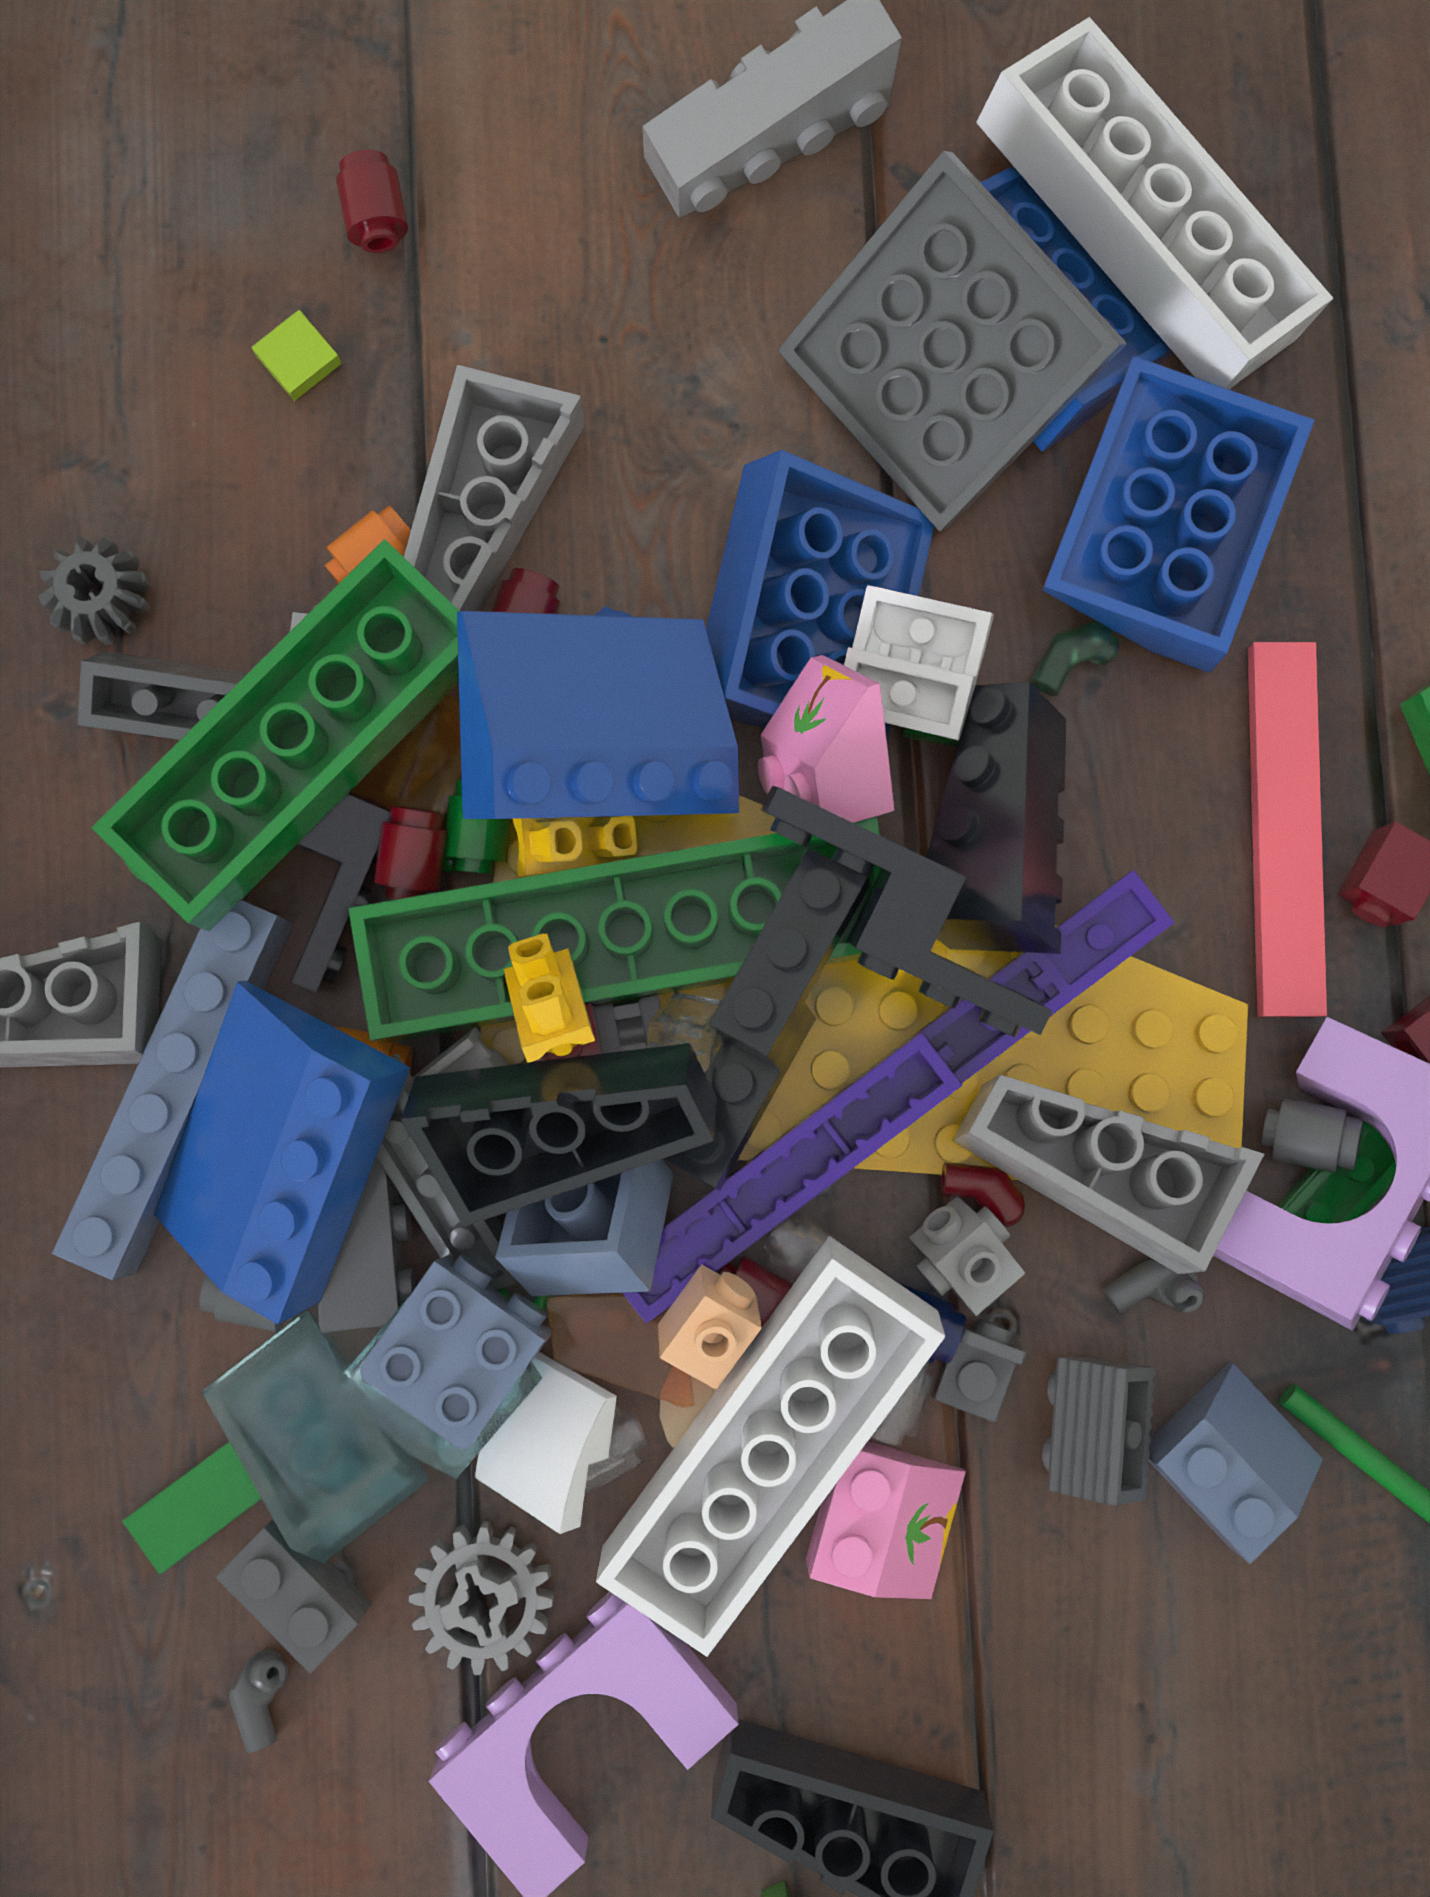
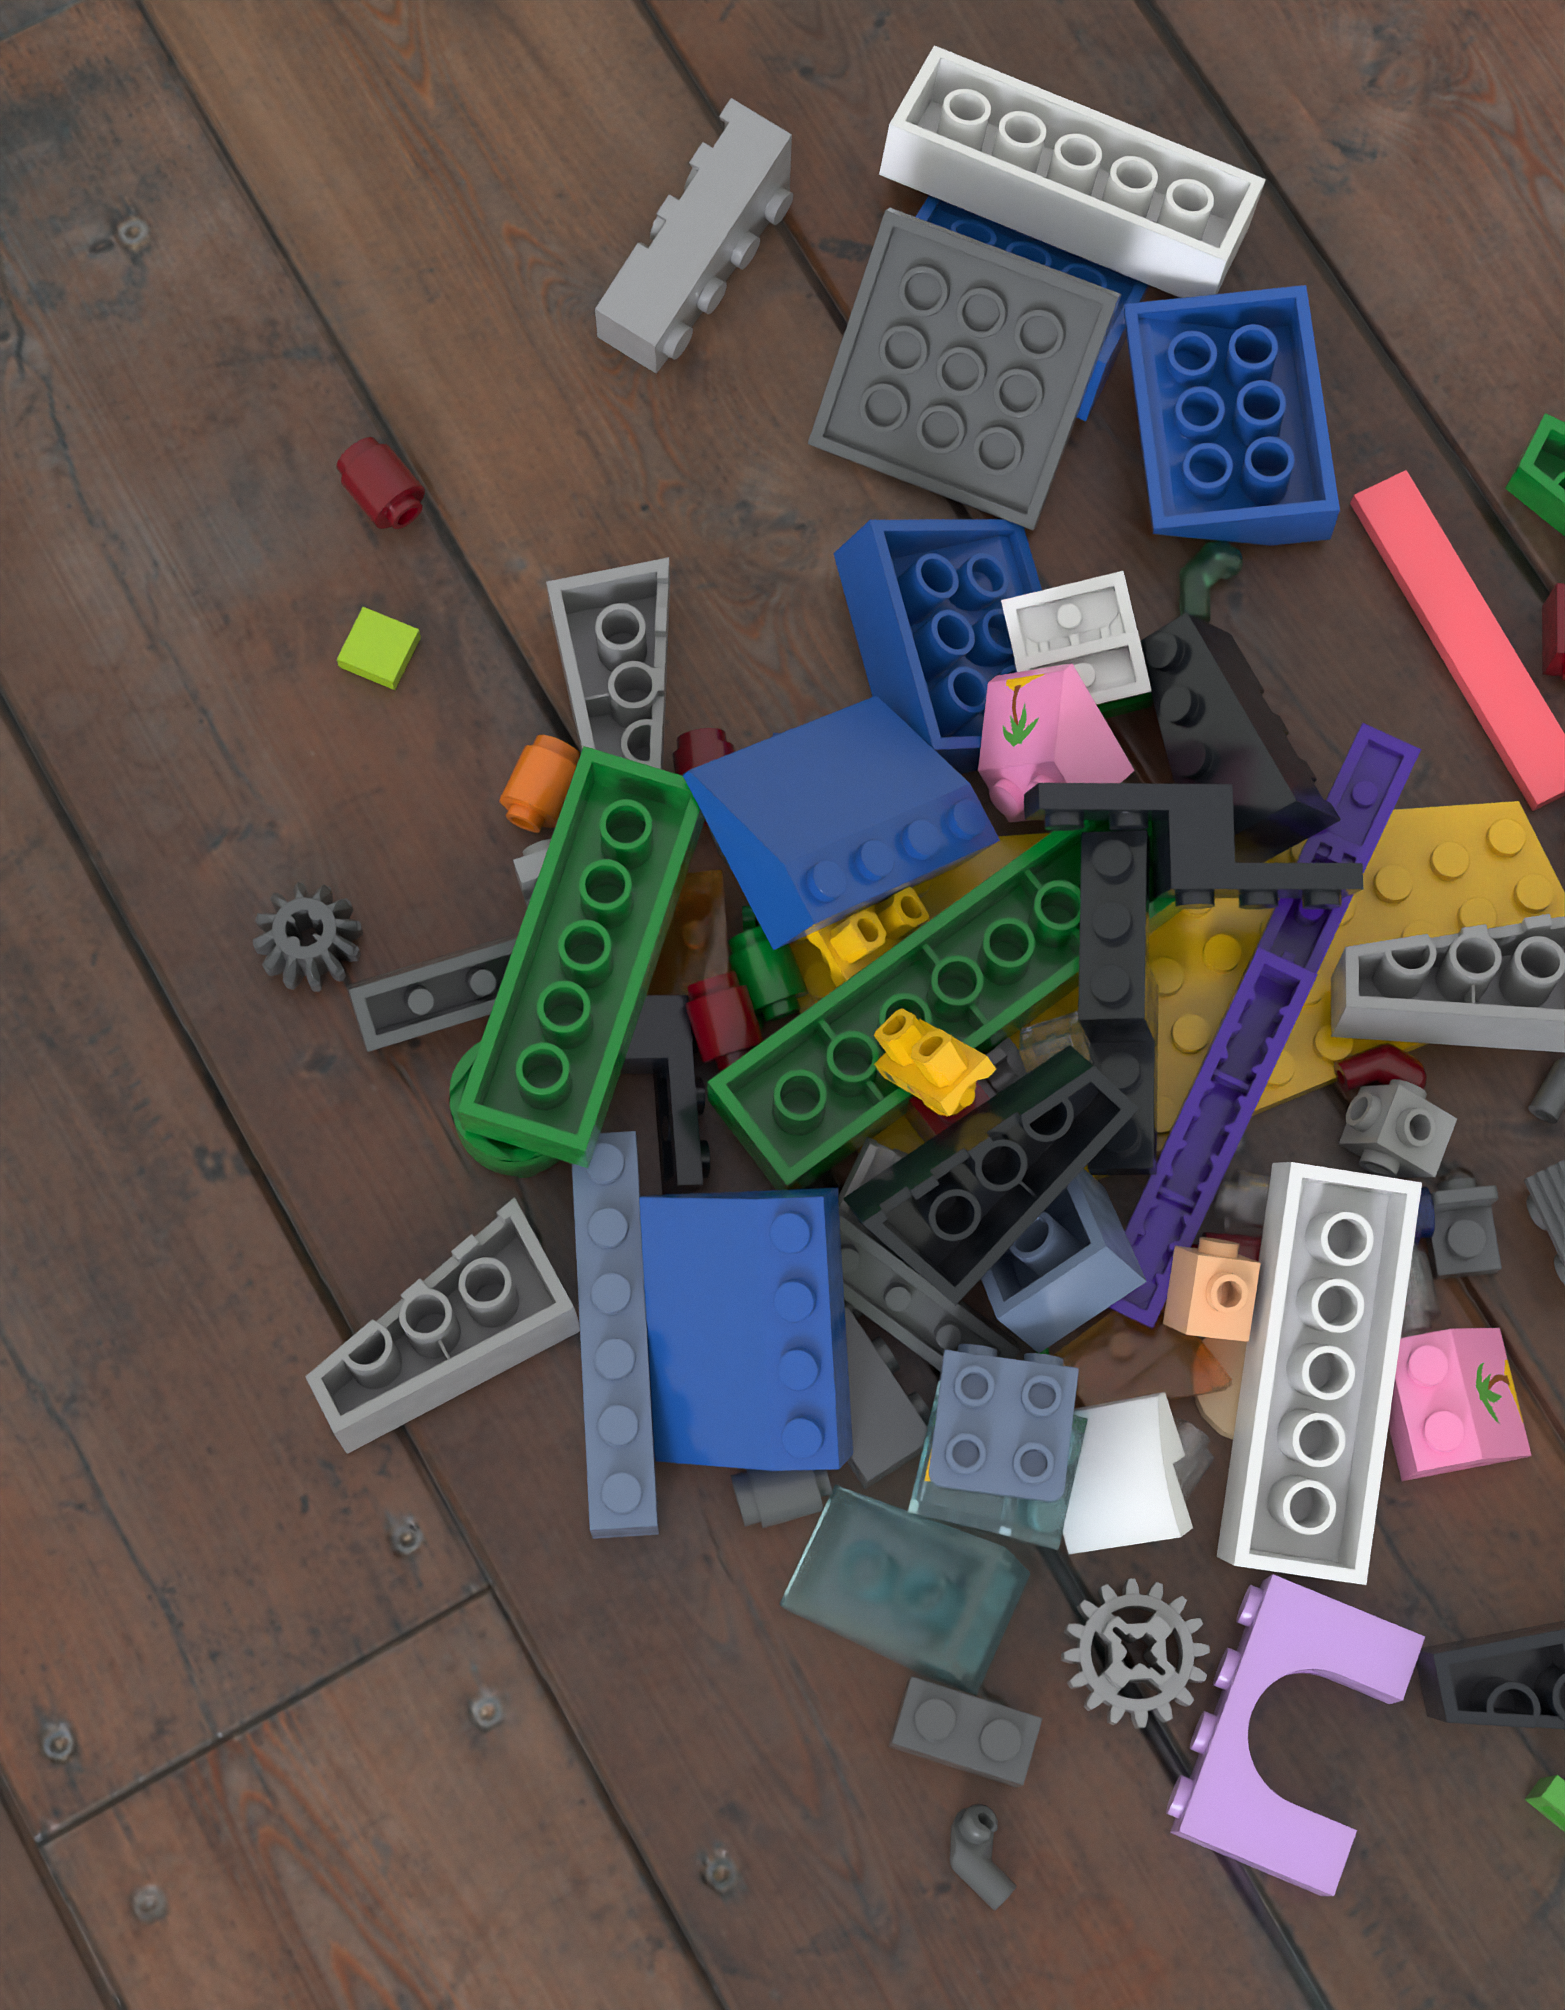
camera: 25 degrees left, 10 degrees down
(192, 1508) = (829, 1711): green tile -> none

